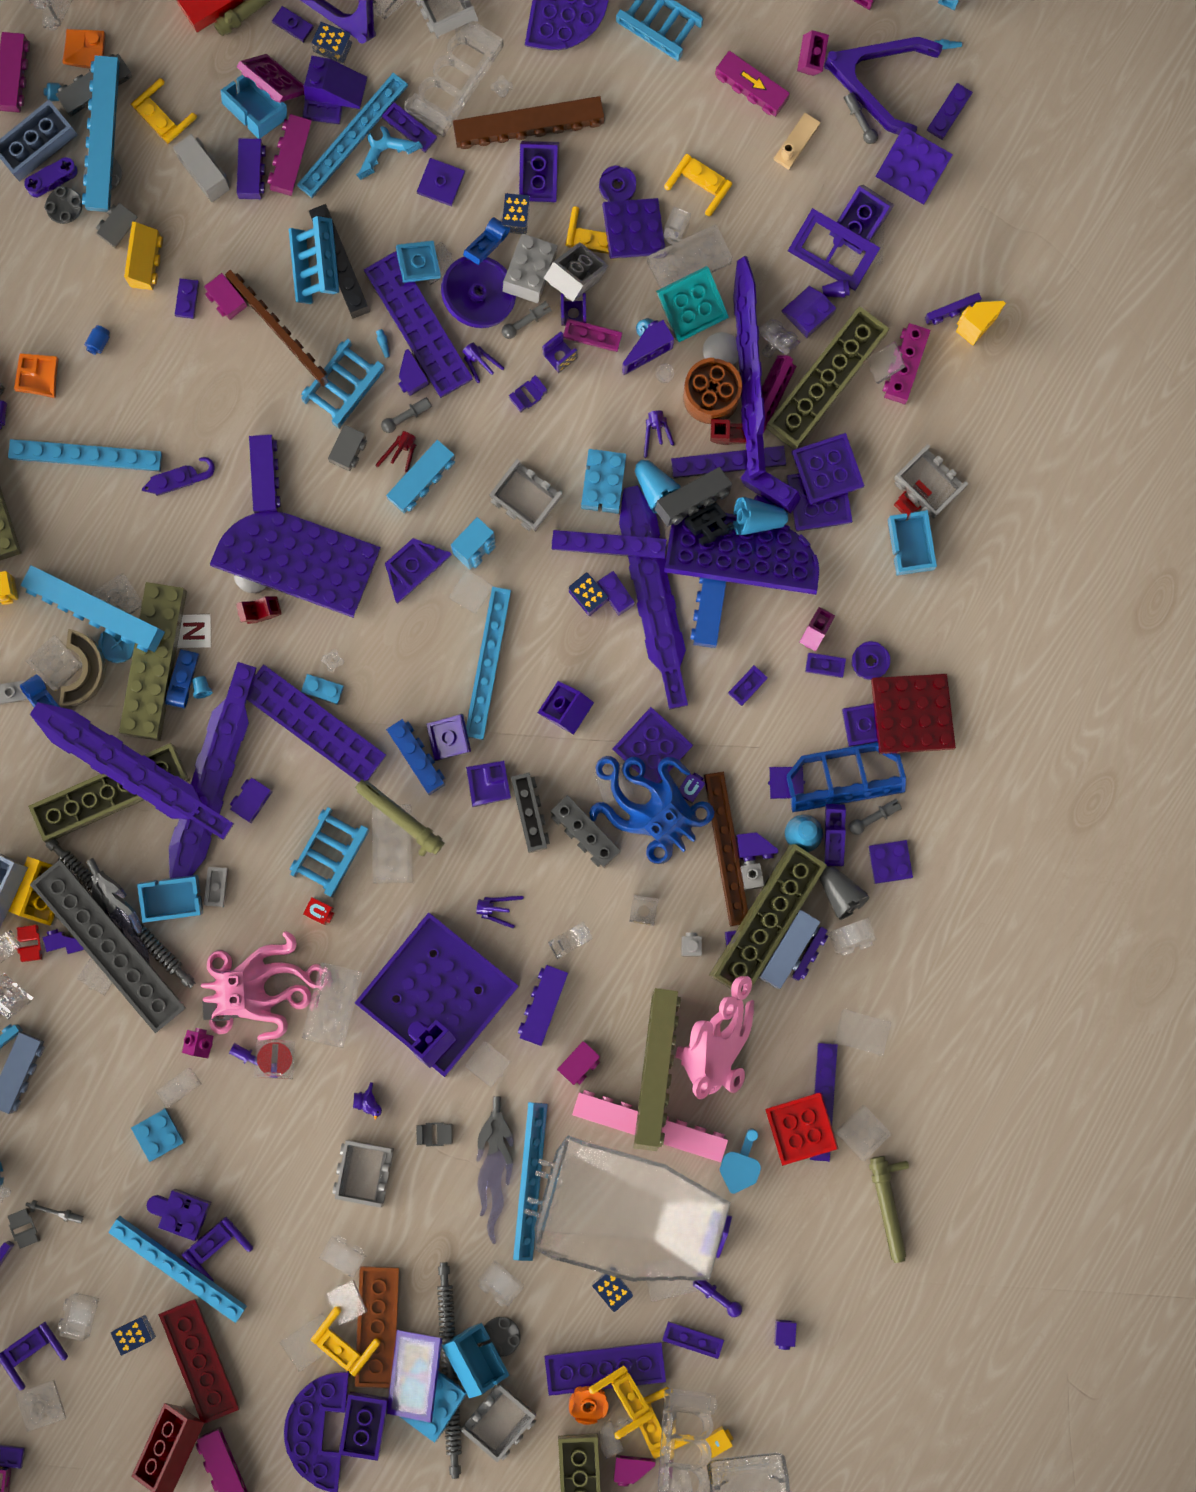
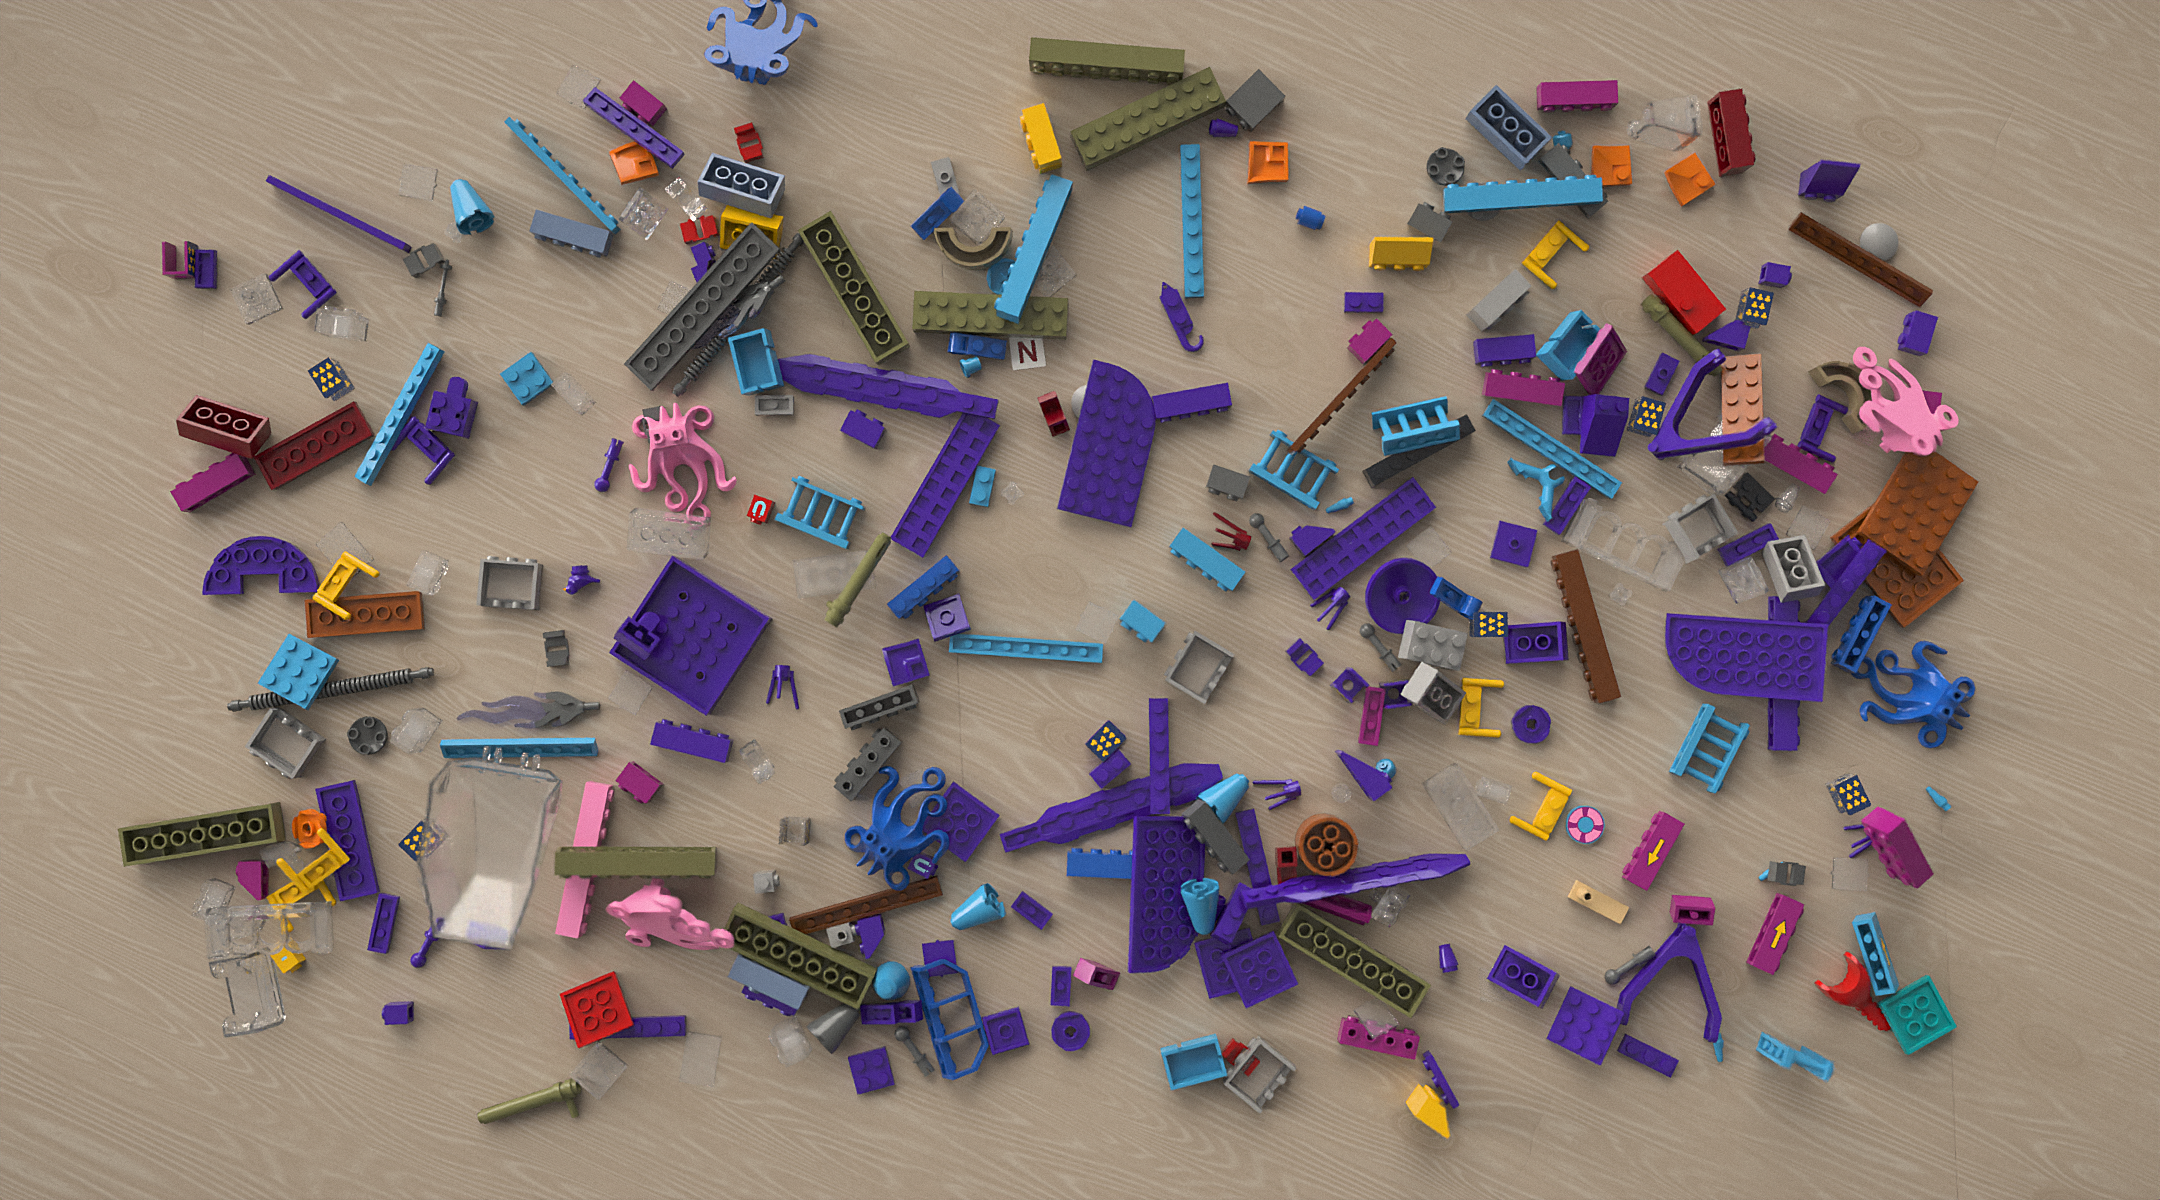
camera: 90 degrees right, 5 degrees up
(50, 177) = (1472, 149): dark purple piece -> none
(130, 769) = (875, 310): dark purple plate -> none
(198, 1043) = (617, 406): magenta brick -> none
(274, 1059) = (611, 483): clear piece -> none
(349, 1301) = (385, 584): clear piece -> none
(363, 1426) = (267, 613): dark purple brick -> none
(412, 566) = (1115, 561): dark purple wing -> none
(414, 1376) = (317, 657): clear door -> none
(418, 261) = (1427, 531): dark azure plate -> none
(475, 1366) = (337, 714): dark azure piece -> none
(566, 707) = (989, 730): dark purple slope -> none
(603, 481) = (1222, 744): dark azure piece -> none
(633, 227) = (1487, 745): dark purple plate -> none
(692, 304) = (1414, 814): teal plate -> none
(707, 518) = (1193, 851): black plate -> none
(720, 145) = (1584, 824): none -> tile
(722, 347) = (1372, 847): light grey dish -> none
(739, 1169) = (550, 951): dark azure piece -> none
(741, 737) = (978, 909): none -> dark azure cone
(809, 311) = (1422, 932): dark purple slope -> none
(843, 233) = (1506, 959): dark purple door -> none
(913, 713) = (1020, 1079): dark red plate -> none

